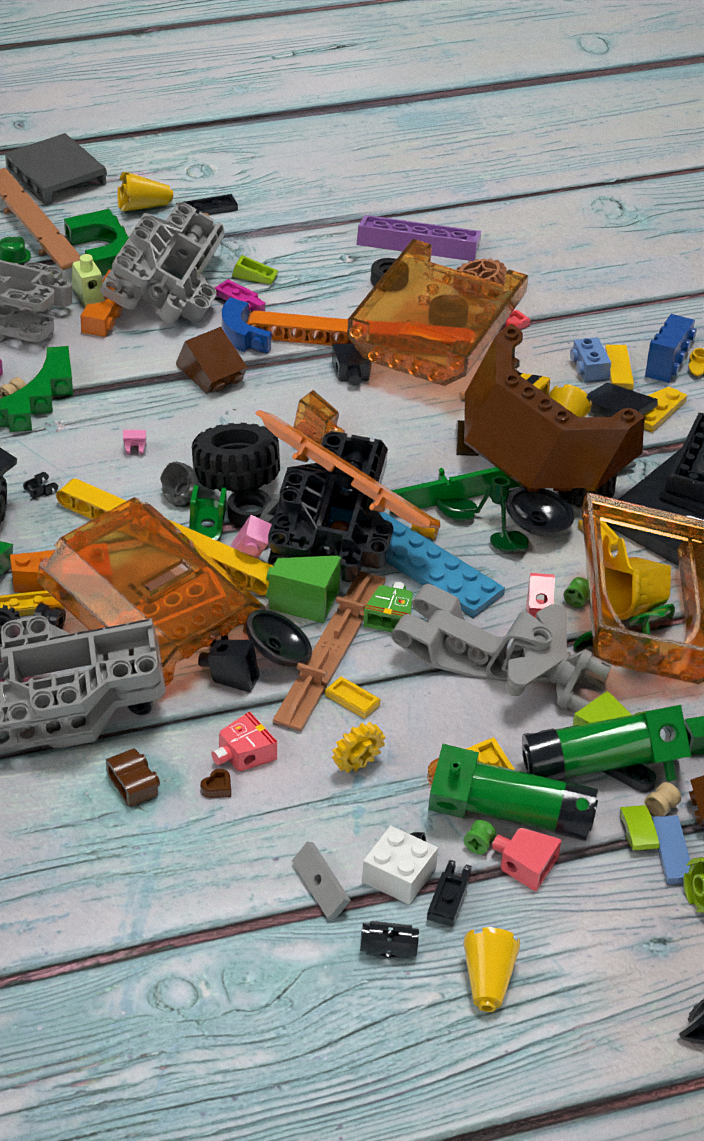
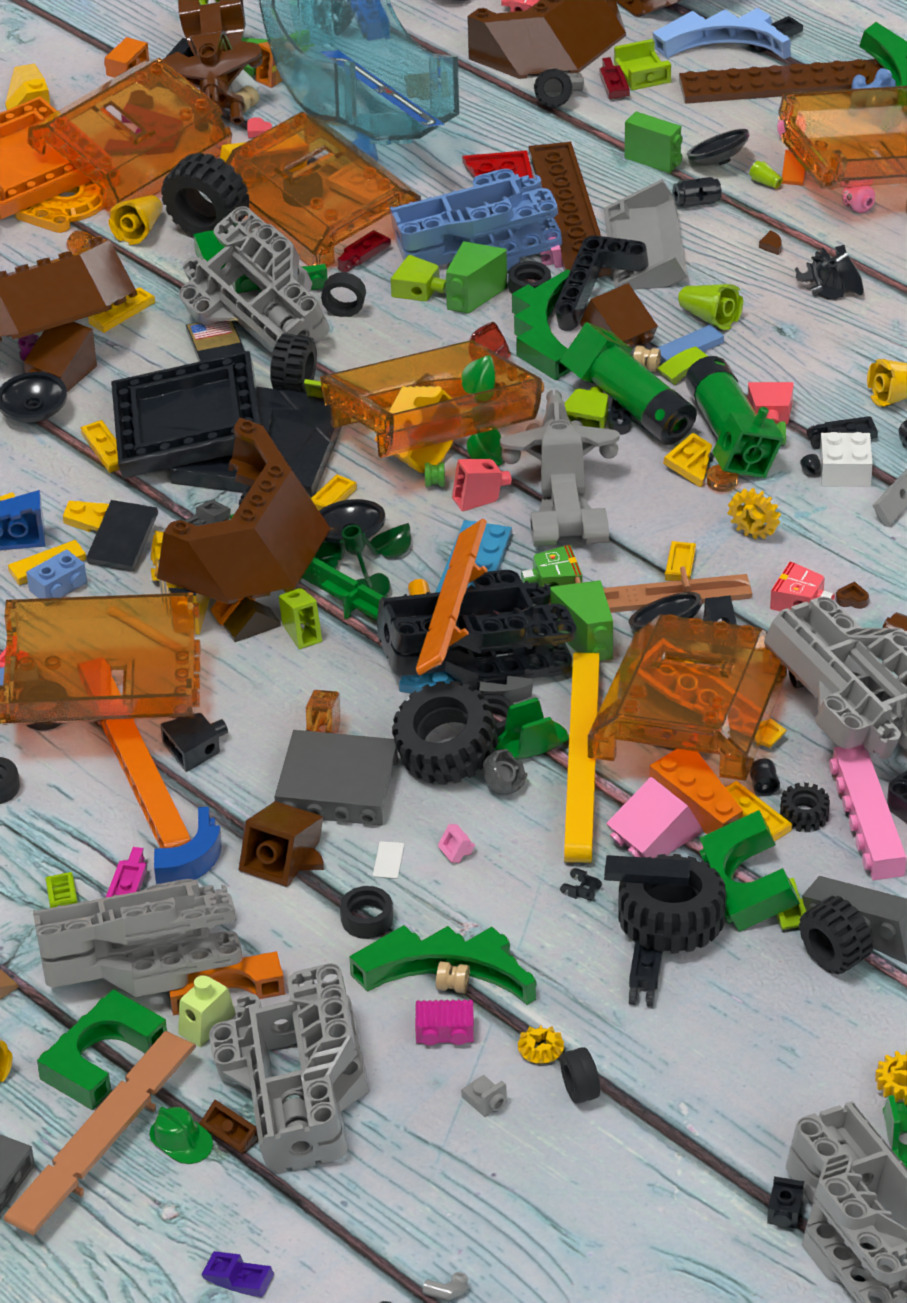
camera: 115 degrees left, 0 degrees up
(51, 524) = (653, 822): none -> bright pink slope
(110, 389) = (366, 896): none -> black tyre
(157, 415) = (388, 859): none -> white sticker
(186, 380) = (312, 861): none -> reddish brown tile
(246, 395) = (337, 775): none -> dark grey panel
(252, 537) = (559, 673): bright pink slope -> none
(444, 448) = (300, 608): none -> lime torso

